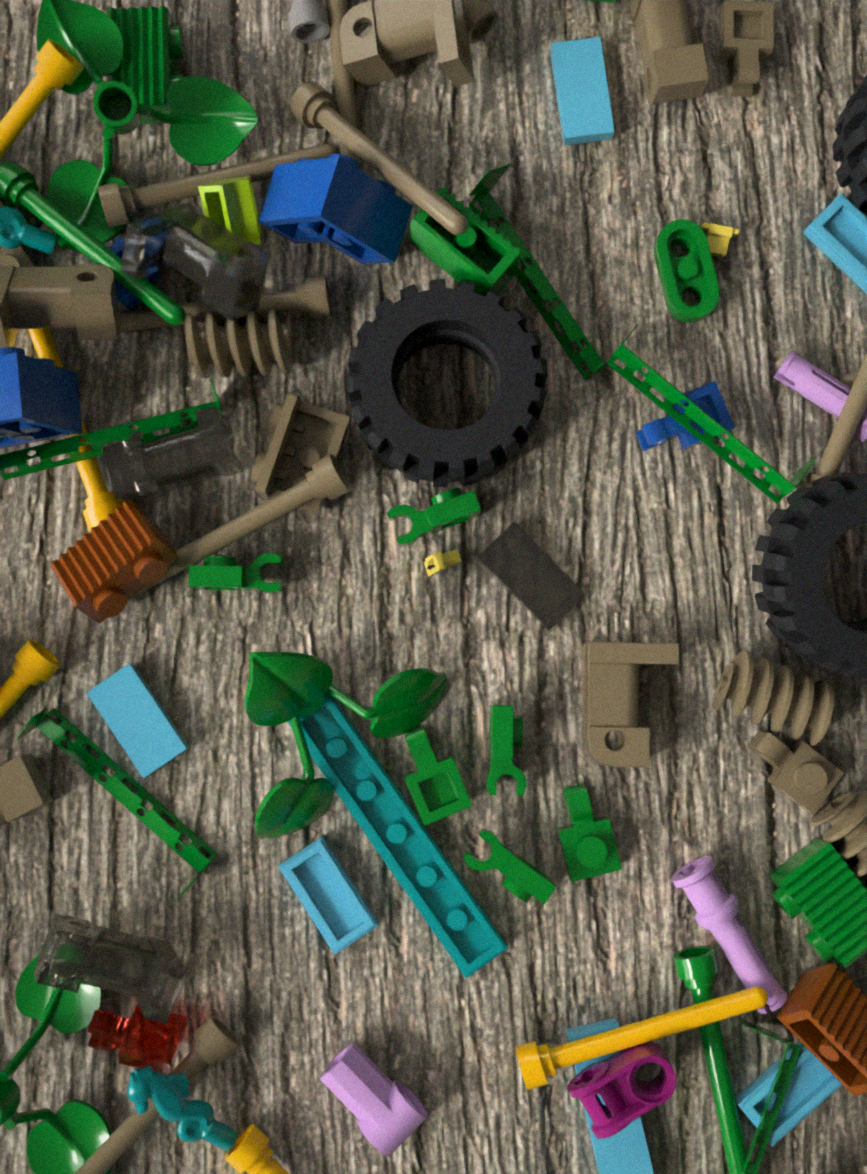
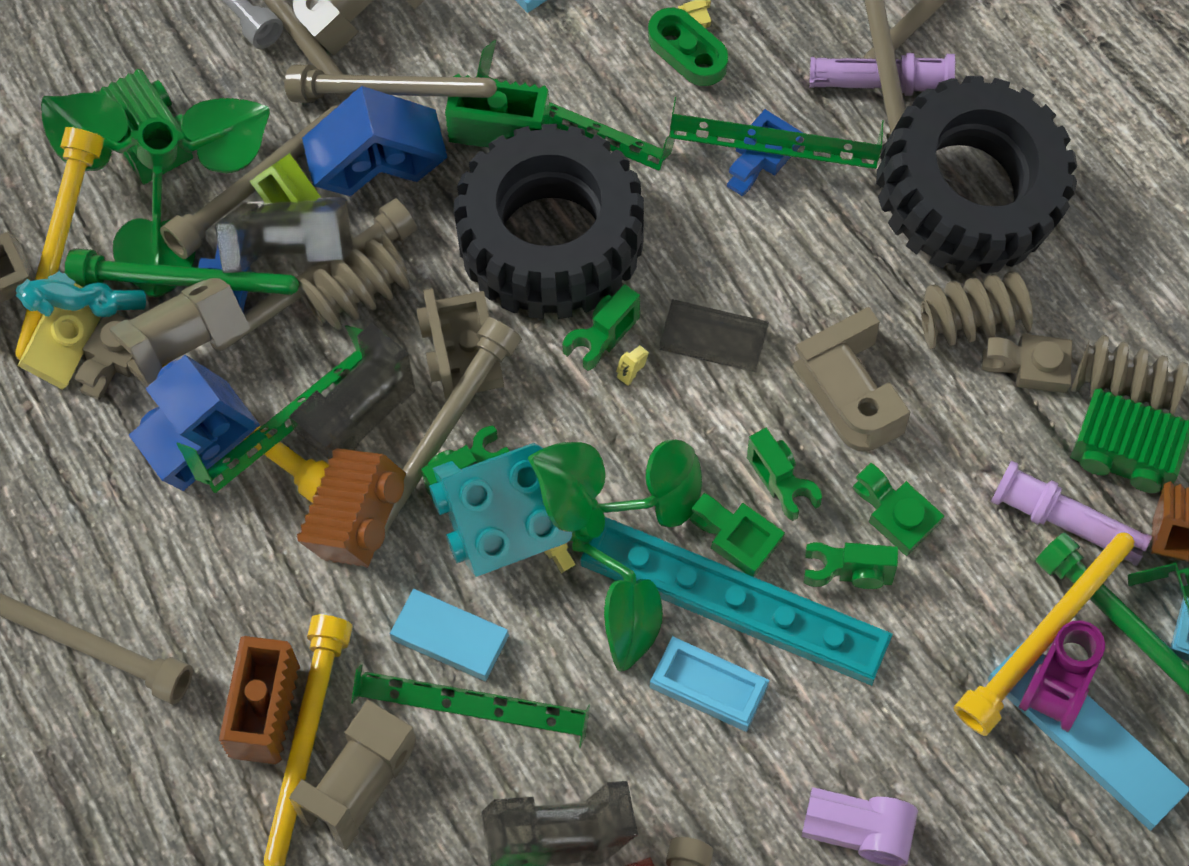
camera: 25 degrees left, 20 degrees down
(218, 643) = (495, 511): none -> teal bracket

